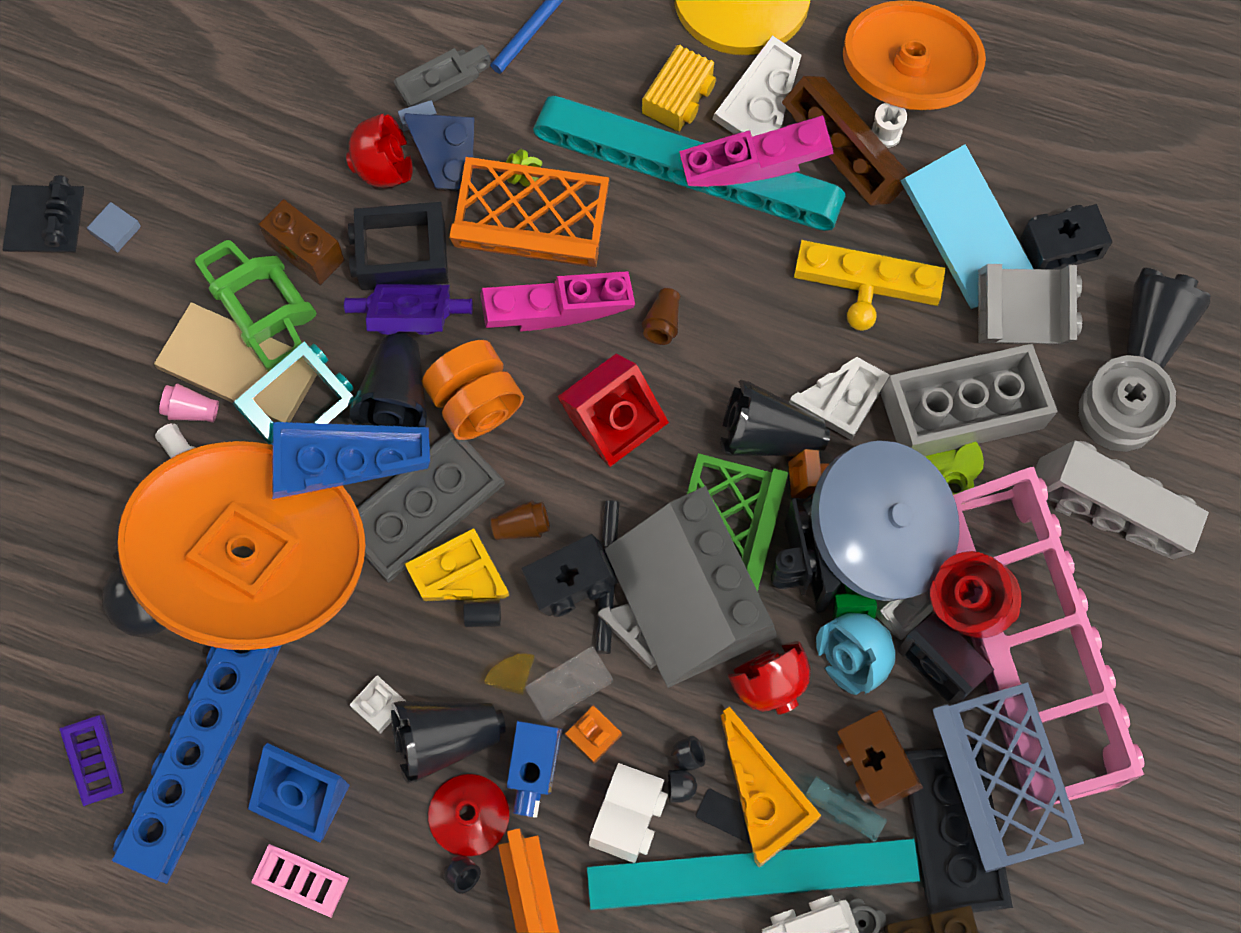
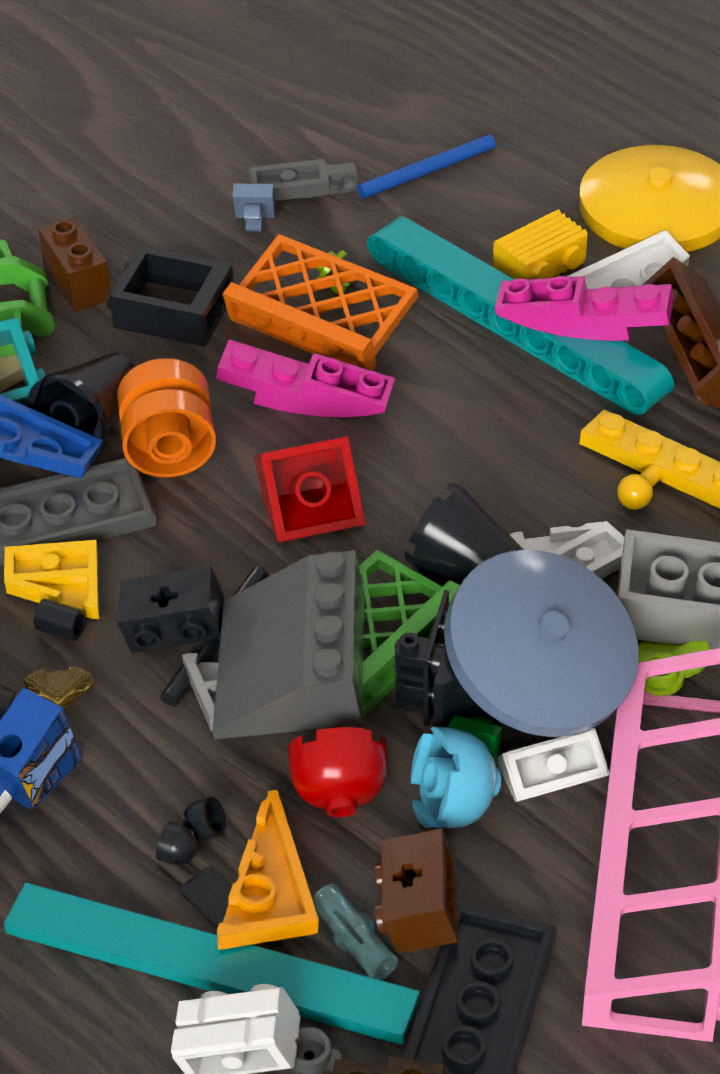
camera: 25 degrees right, 25 degrees down
(377, 152) = (197, 214): red cylinder -> none
(408, 308) = (138, 338): dark purple plate -> none
(443, 146) = (260, 220): dark blue wing -> none
(521, 522) = (151, 553): reddish brown cone -> none
(569, 684) = (114, 713): clear plate -> none
(593, 734) = (111, 767): orange tile -> none
(627, 812) = (99, 843): white brick -> none
(662, 320) = (408, 431): reddish brown cone -> none
(945, 659) = (549, 816): black slope -> none
(956, 583) = (611, 746): red brick -> none
(972, 788) = (511, 955): sand blue fence -> none

